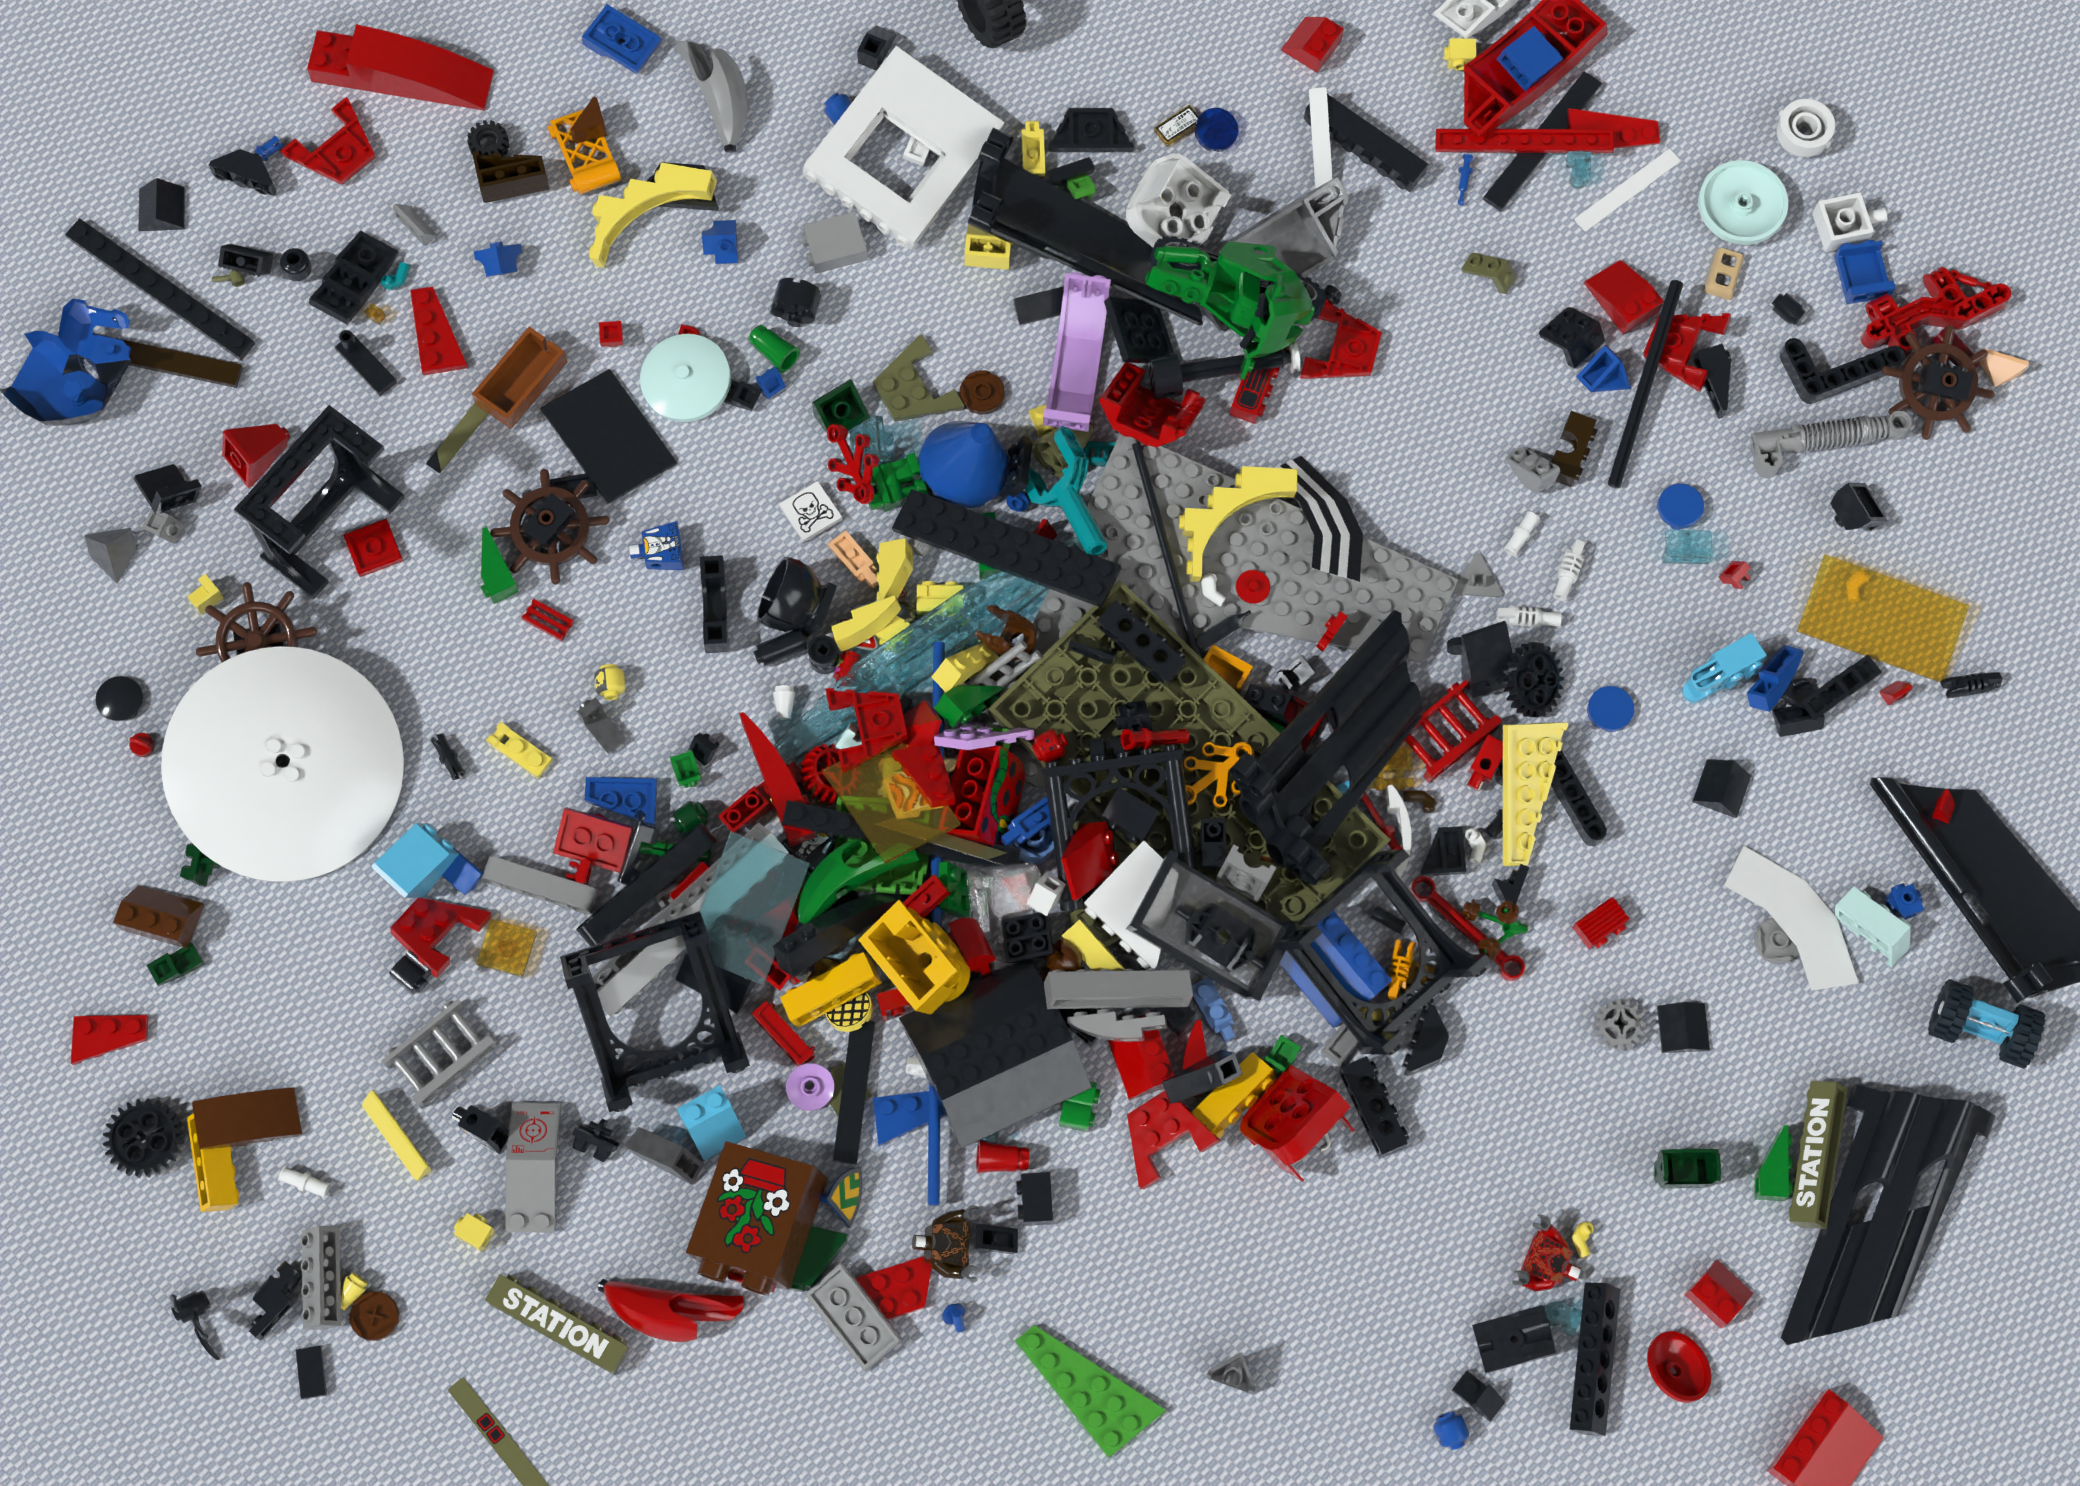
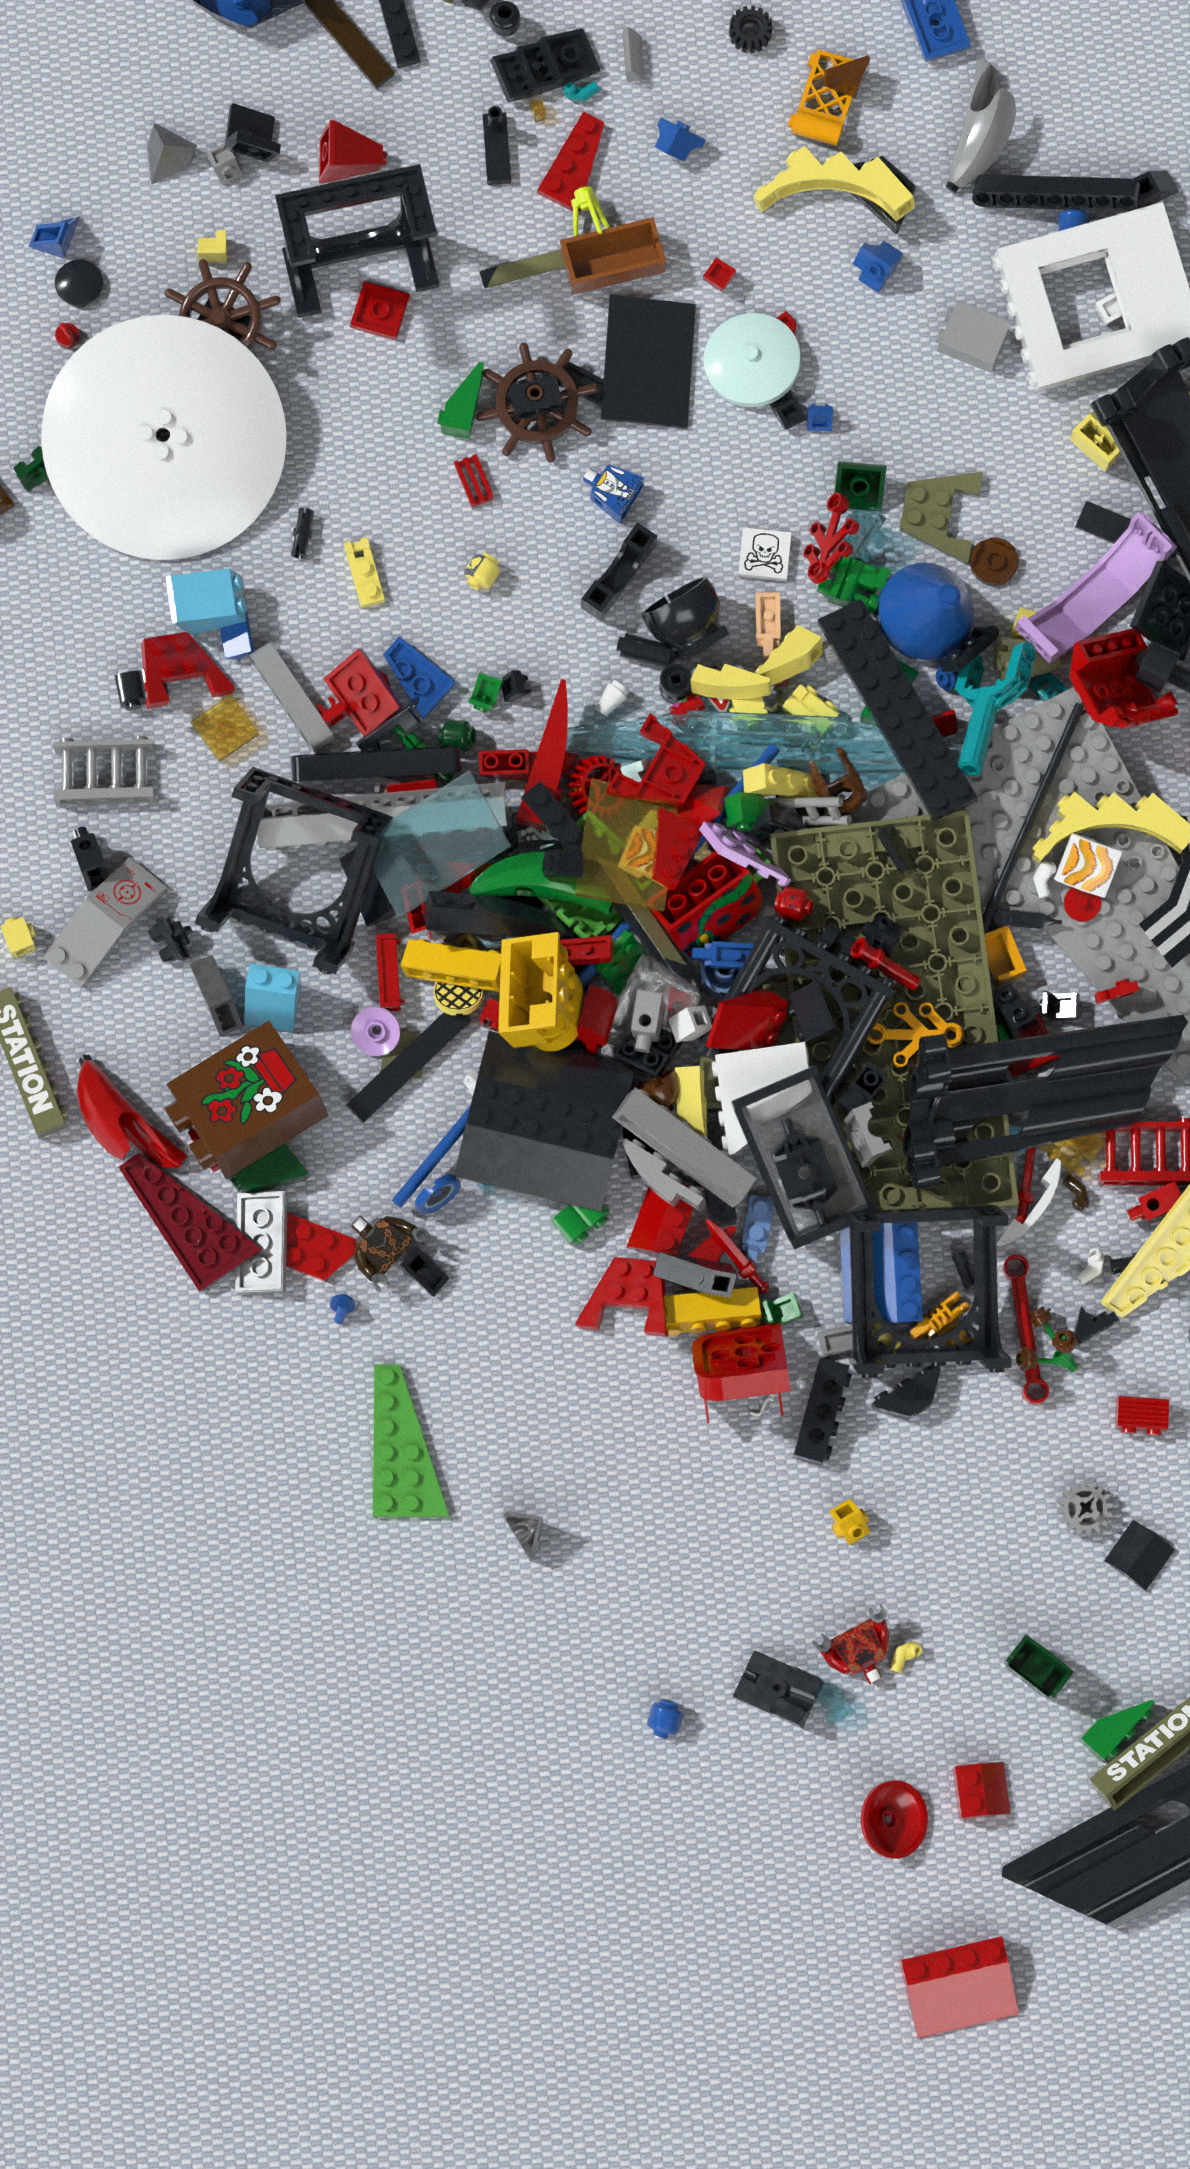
camera: 40 degrees right, 5 degrees up
(71, 678) = (54, 237): none -> blue slope
(395, 1136) = (18, 812): light yellow slope -> none
(466, 352) = (587, 201): none -> neon yellow plant
(509, 176) = (742, 72): dark brown wedge -> none
(600, 725) = (445, 602): flat silver bracket -> none
(774, 348) = (846, 390): green plant -> none
(795, 301) = (896, 363): black brick -> none
(798, 1350) = (196, 1234): none -> dark red wing
(811, 96) = (1056, 192): none -> black beam
(845, 1195) = (333, 1140): shield -> none
(858, 846) = (563, 863): none -> black brick
(900, 1114) = (429, 1111): blue wing -> none
(959, 1175) = (439, 1195): none -> blue tile
(986, 694) = (777, 820): none -> black slope
(1001, 1157) = (482, 1210): red plant -> none
(1008, 909) = (649, 1011): none -> light grey torso
(1036, 1199) = (482, 1265): black brick -> none
(1163, 671) = (941, 916): black brick -> none
(1230, 1043) = (747, 1268): none -> red sword
(1237, 554) = (1088, 865): none -> slope
(1446, 853) = (1059, 1253): black wing -> none
(1462, 1172) = (851, 1527): none -> yellow brick
(1478, 1395) = (712, 1710): black slope -> none
(1595, 1359) = (830, 1757): black brick -> none

